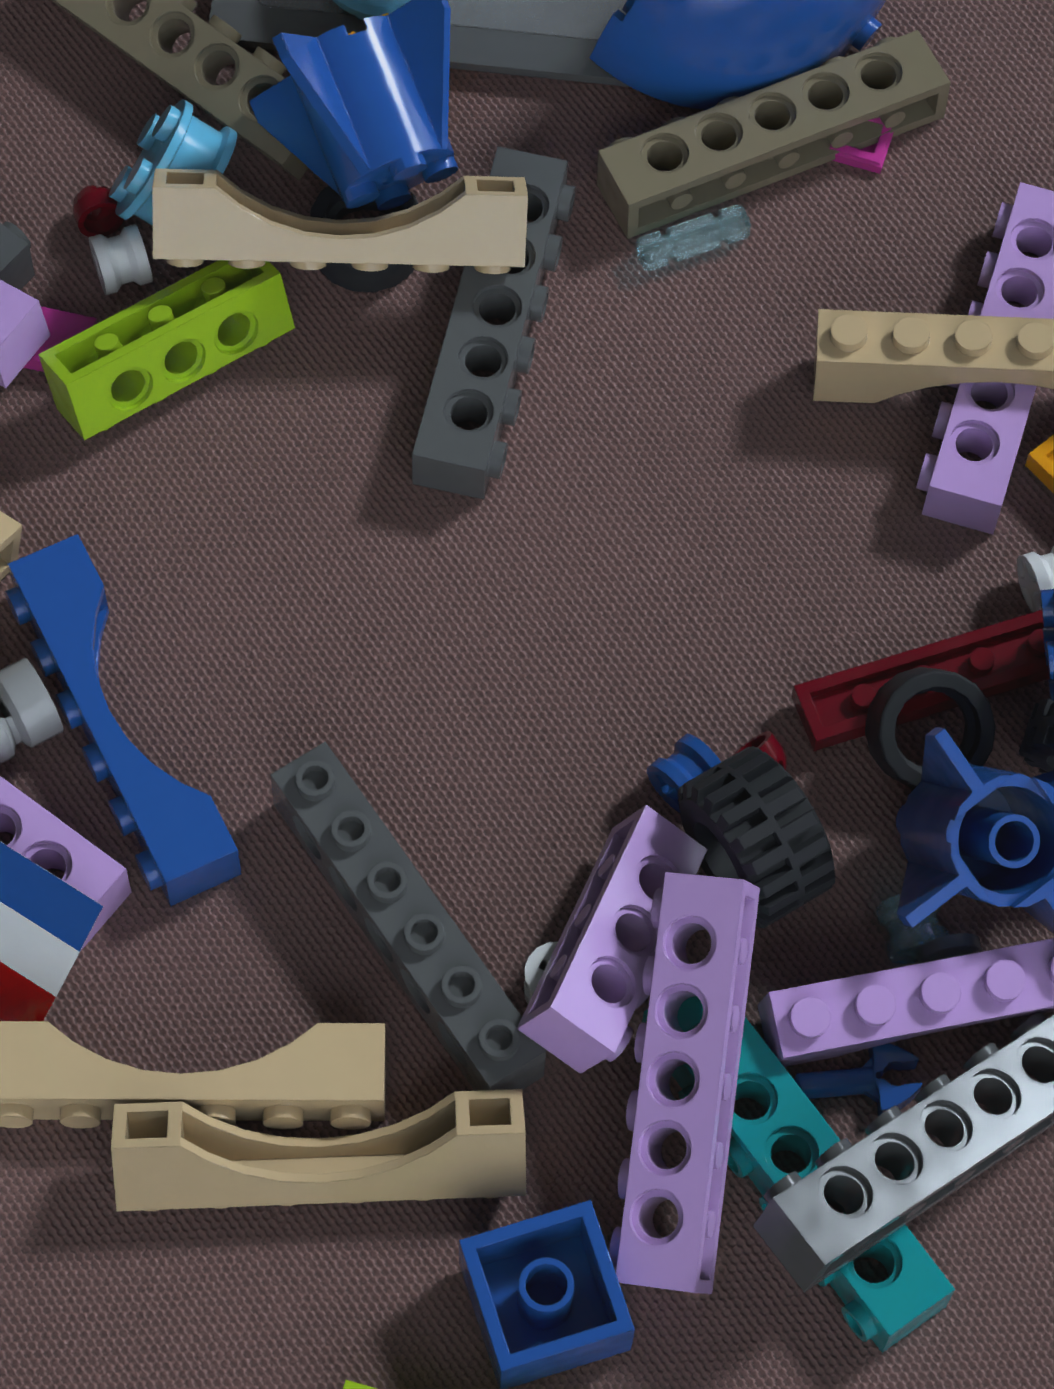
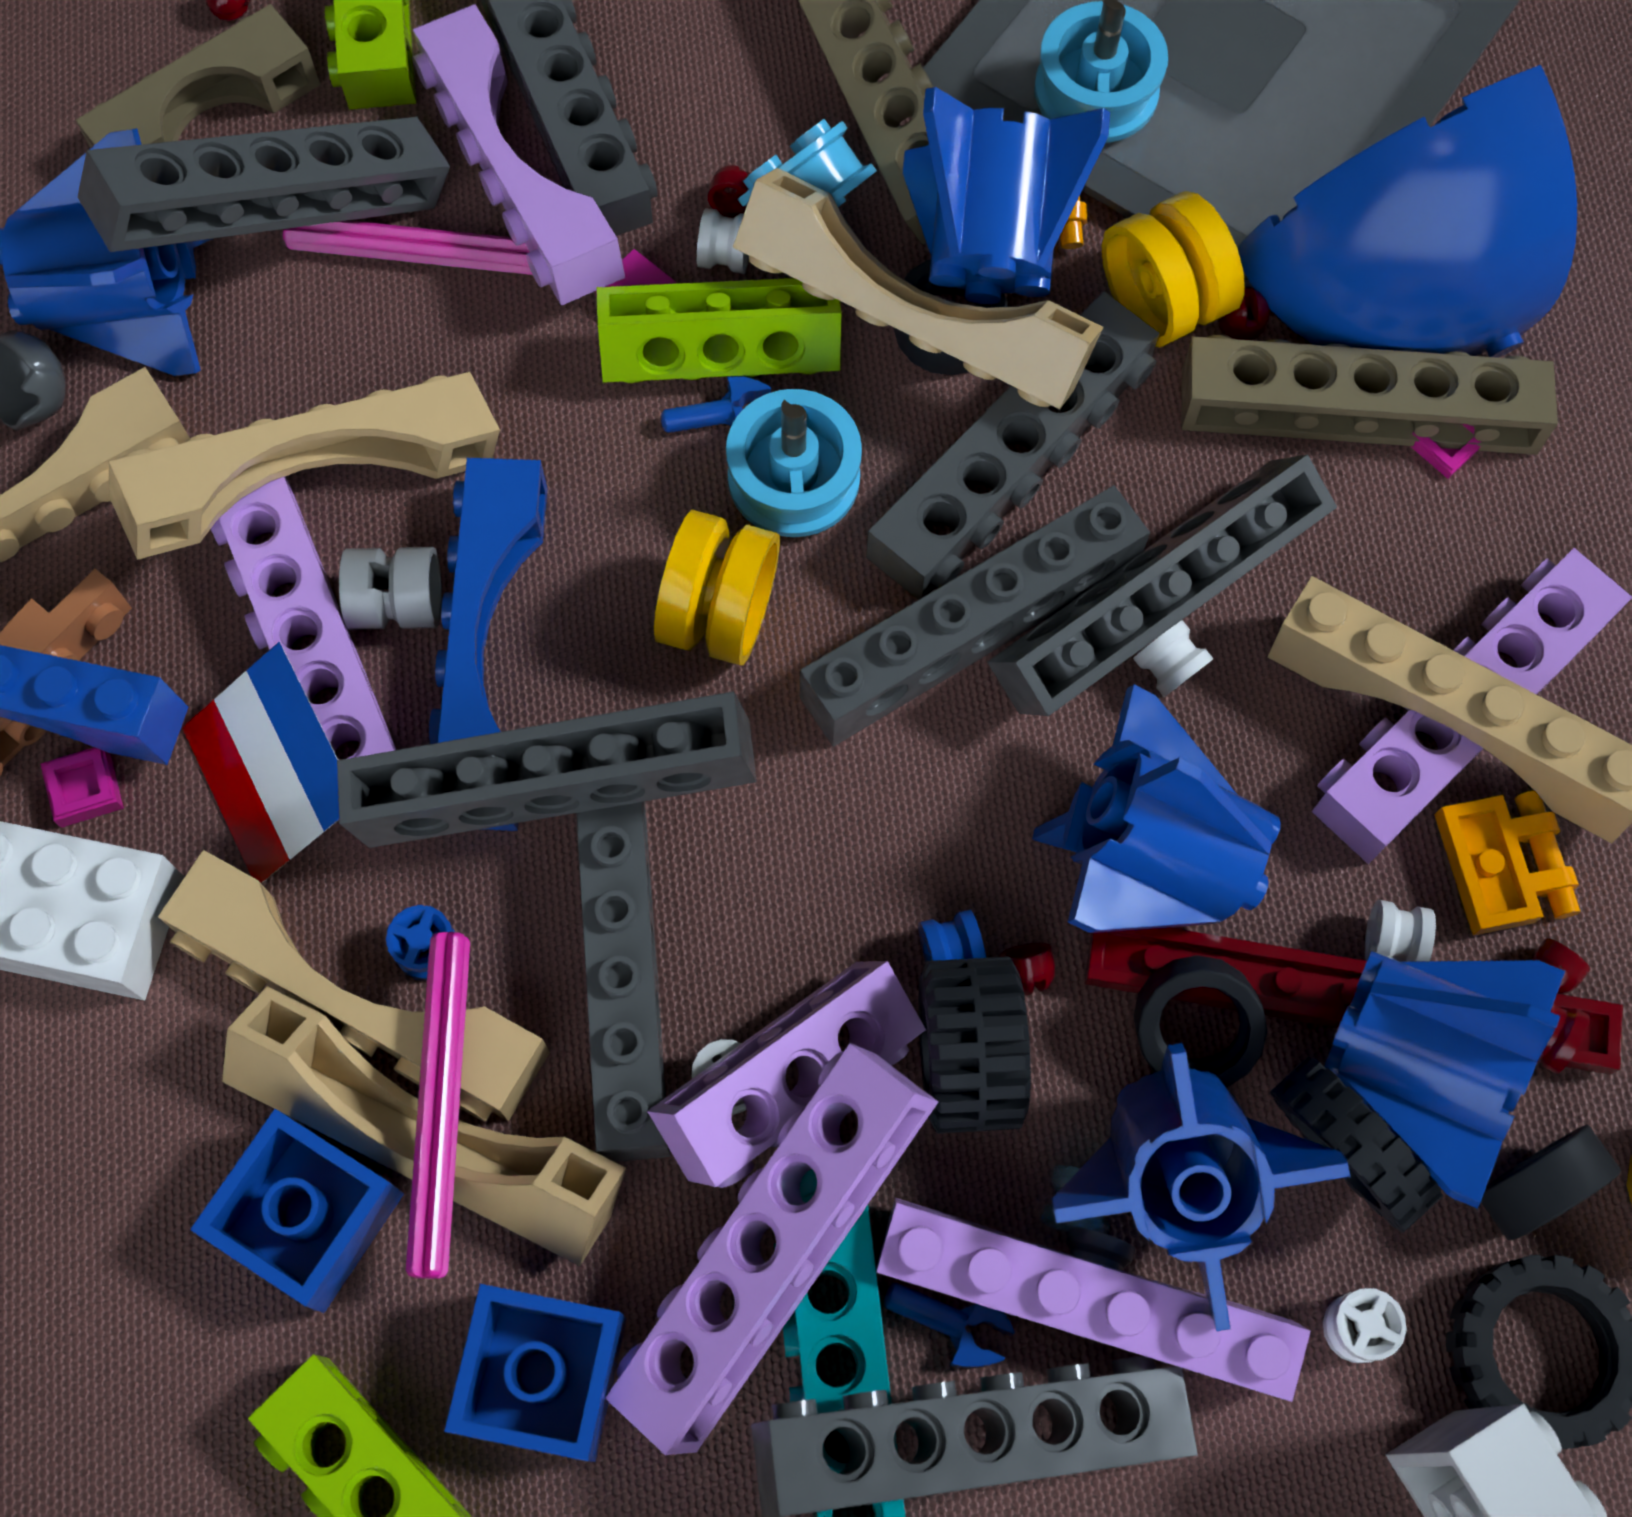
camera: 30 degrees right, 5 degrees up
(210, 413) = (724, 411): none -> blue bar
(219, 991) = (411, 935): none -> blue wheel
(256, 1276) = (297, 1212): none -> blue brick
(267, 787) = (546, 770): none -> dark grey brick
(306, 428) = (794, 462): none -> medium azure wheel
(316, 566) = (716, 587): none -> yellow wheel
(331, 1119) = (438, 1107): none -> dark pink axle
(541, 487) = (970, 616): none -> dark grey brick
(548, 95) = (1174, 266): none -> yellow wheel
(618, 114) = (1236, 323): none -> dark red hinge
(692, 381) = (1161, 585): none -> dark grey brick
(693, 237) = (1231, 453): clear light blue axle -> none
(736, 439) = (1172, 658): none -> white wheel
(811, 583) = (1160, 832): none -> blue brick

